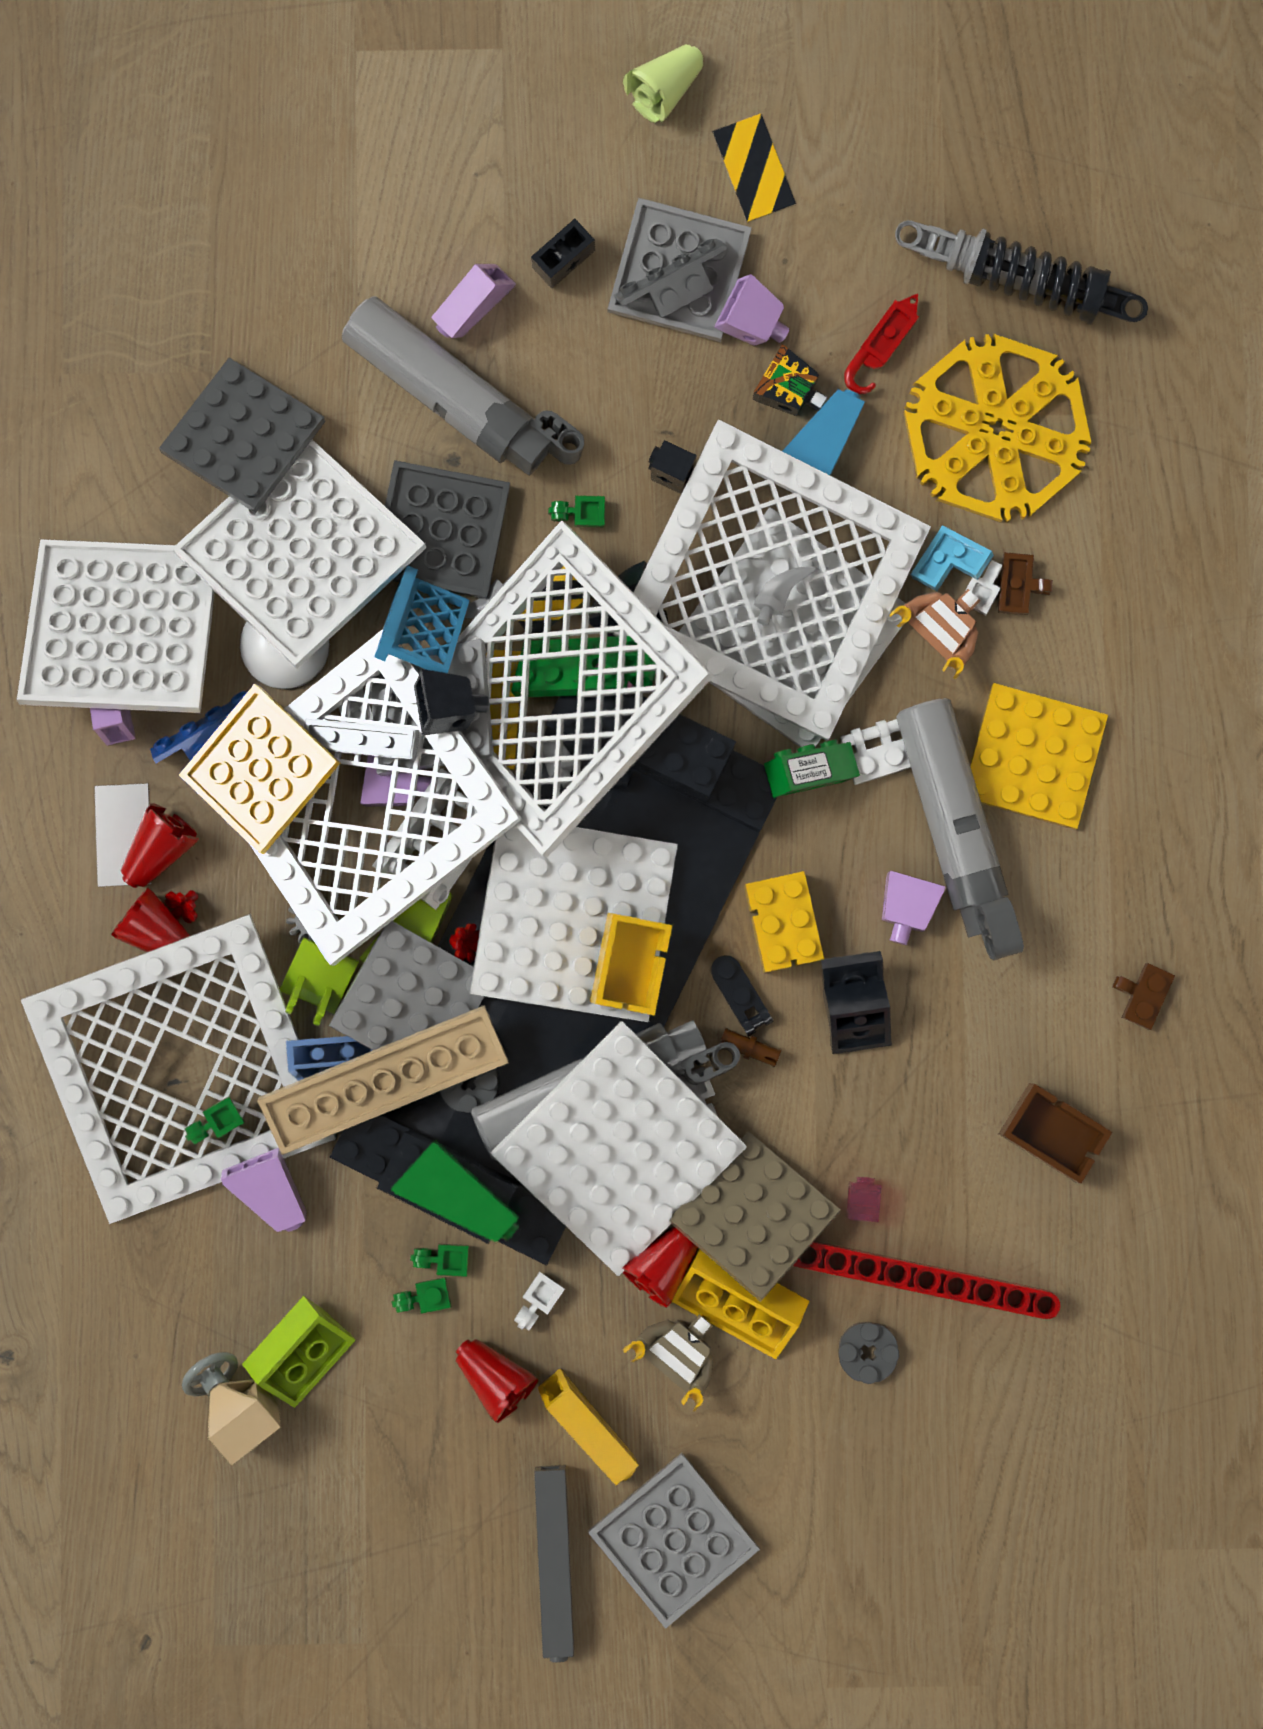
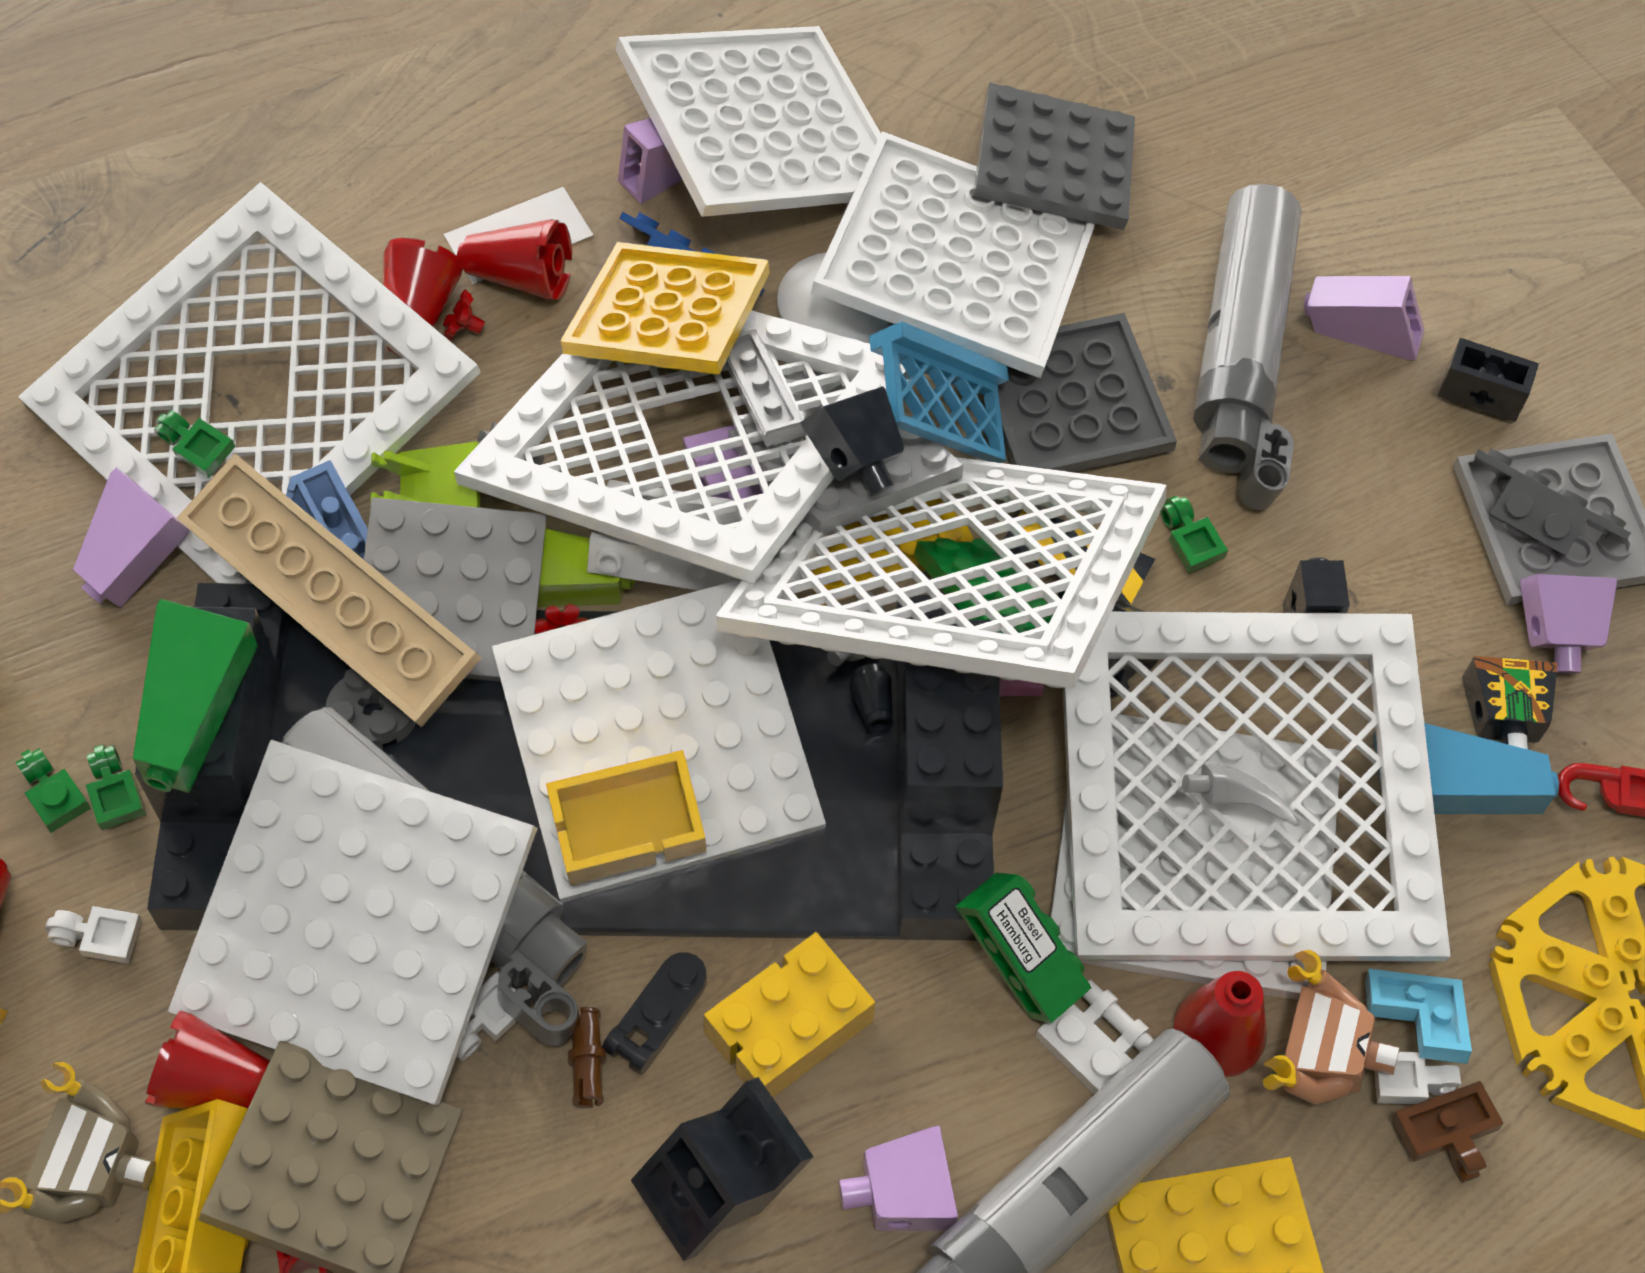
camera: 60 degrees right, 25 degrees down
(898, 687) = (1227, 1020): none -> red cone

